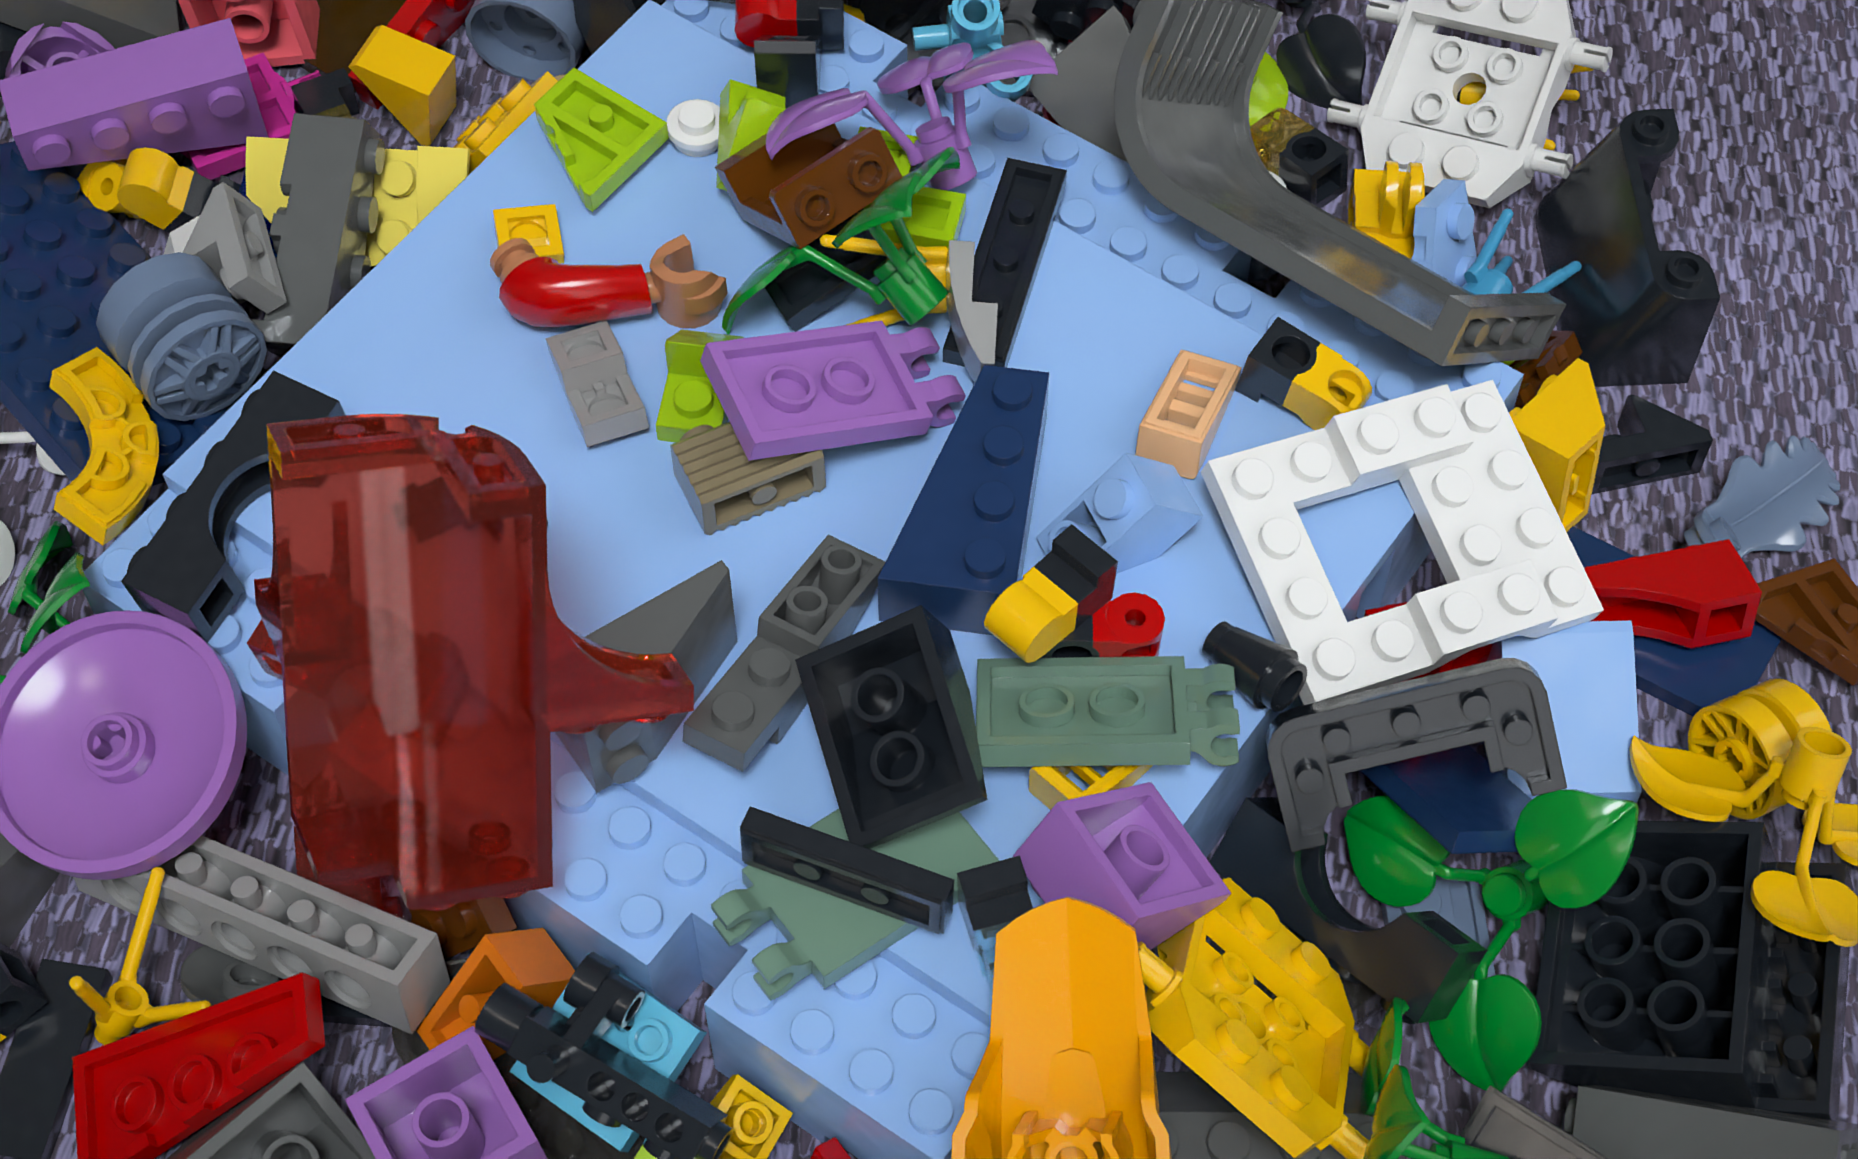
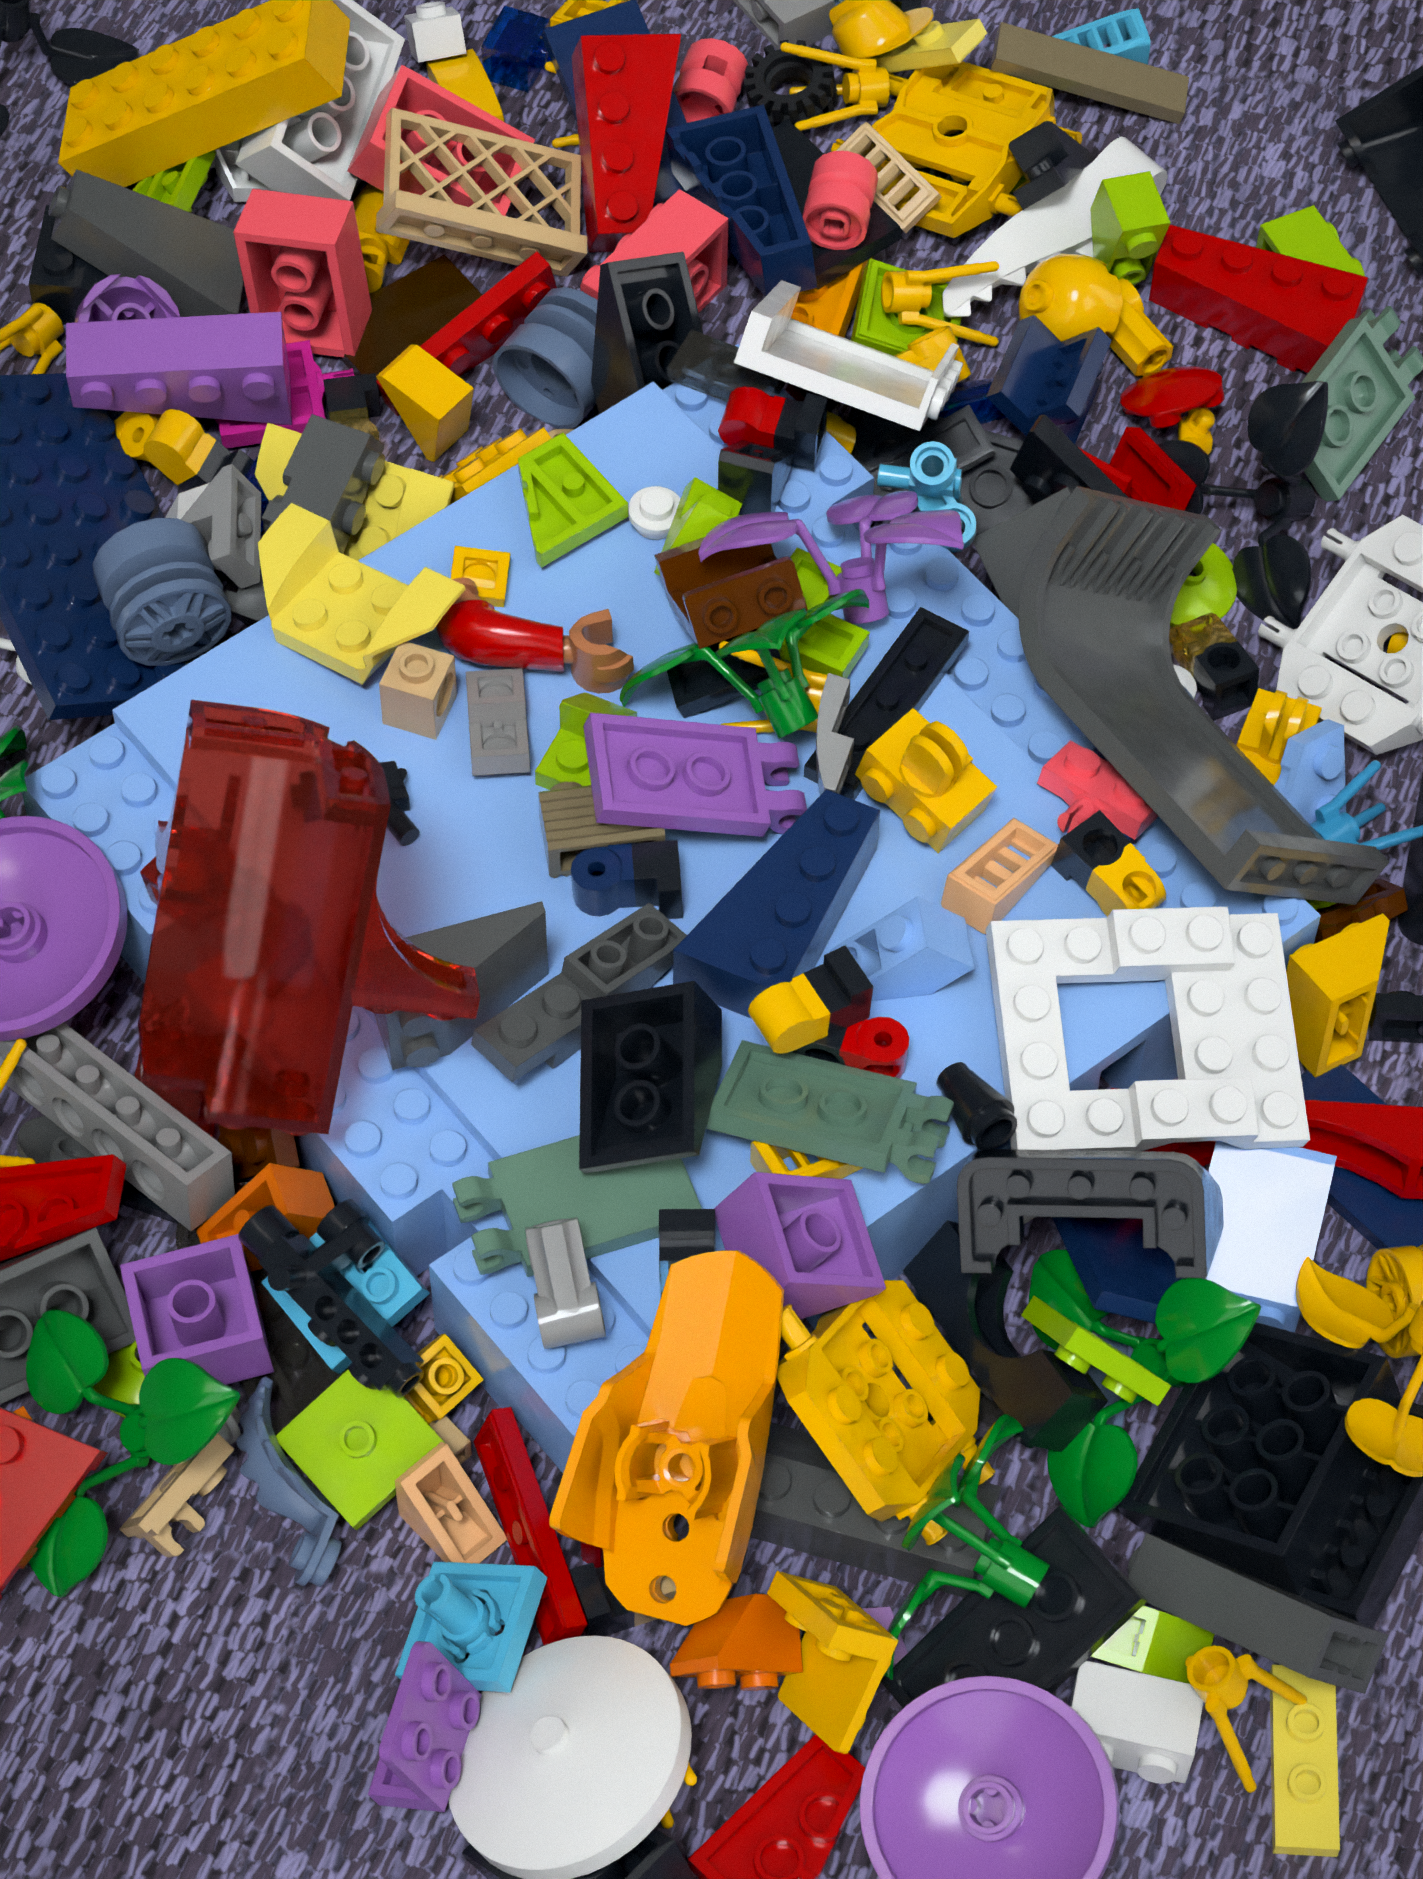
camera: 15 degrees right, 0 degrees up
(120, 442) = (85, 676): yellow tile -> none
(186, 562) = (110, 792): black arch -> none
(388, 303) = (338, 606): none -> light yellow piece
(501, 368) = (418, 689): none -> tan brick
(796, 513) = (628, 878): none -> leg
(846, 870) = (569, 1184): black tile -> none
(881, 1002) = (566, 1298): none -> light grey piece
(1081, 327) = (925, 779): none -> yellow brick
(1254, 300) = (1094, 785): none -> coral plate
(1450, 901) = (1083, 1348): none -> lime wing

